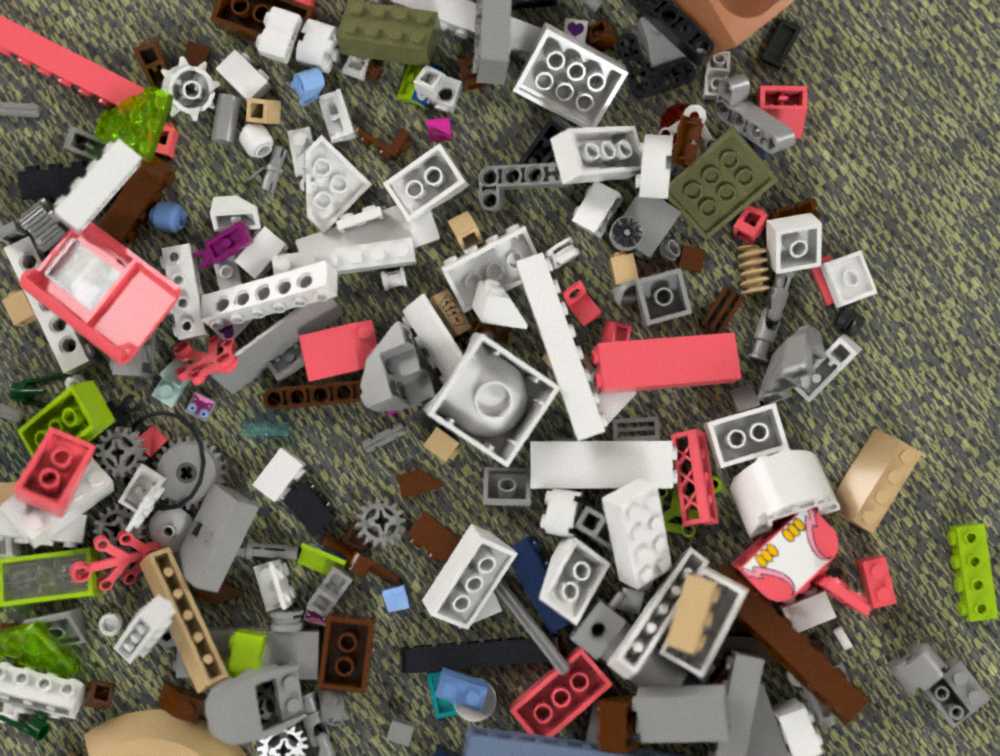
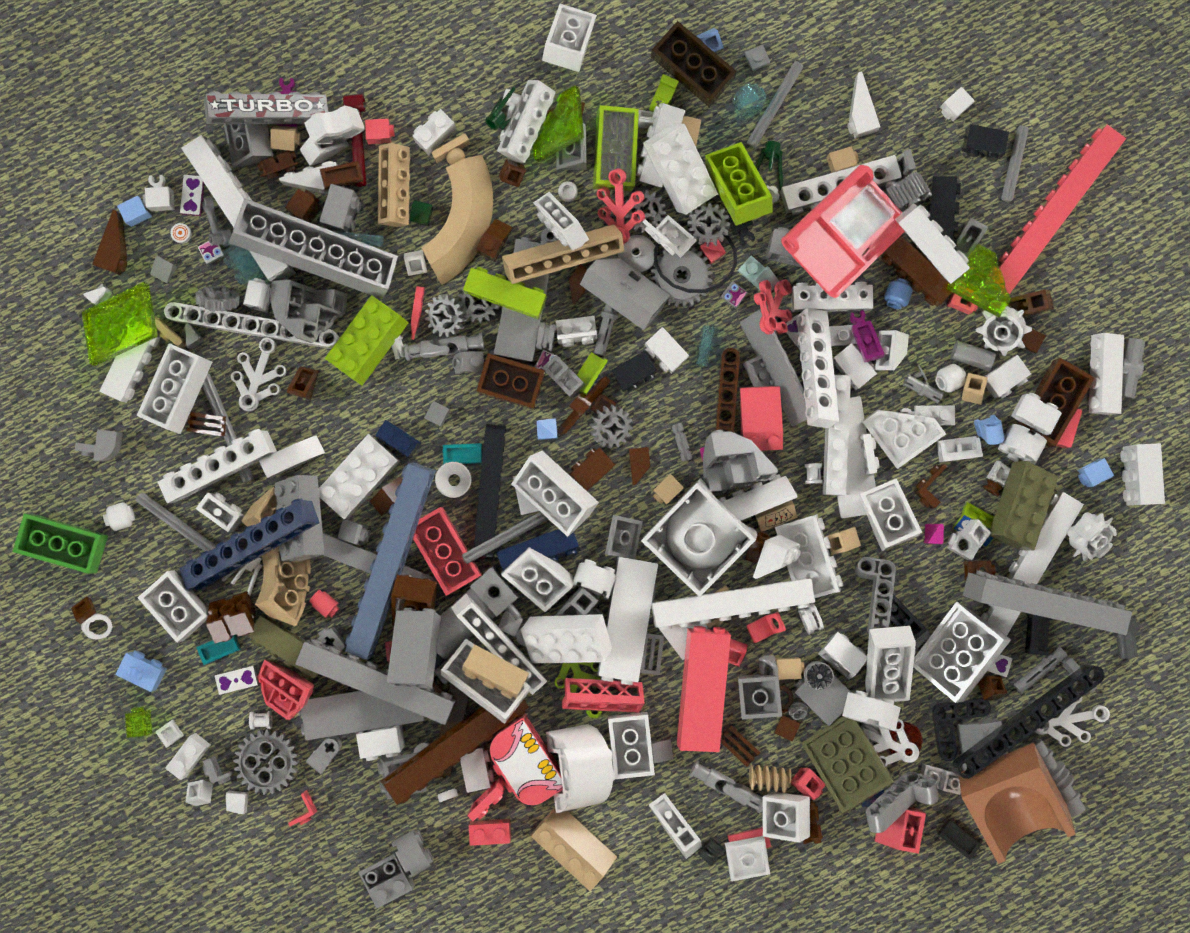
camera: 100 degrees right, 0 degrees up
(54, 472) = (702, 171): coral slope -> none
(234, 708) = (485, 285): light grey slope -> none
(461, 689) = (465, 470): medium blue brick -> none
(687, 130) = (880, 737): reddish brown hinge -> none
(790, 363) = (686, 794): light grey brick -> none
(972, 571) = (482, 916): lime brick -> none

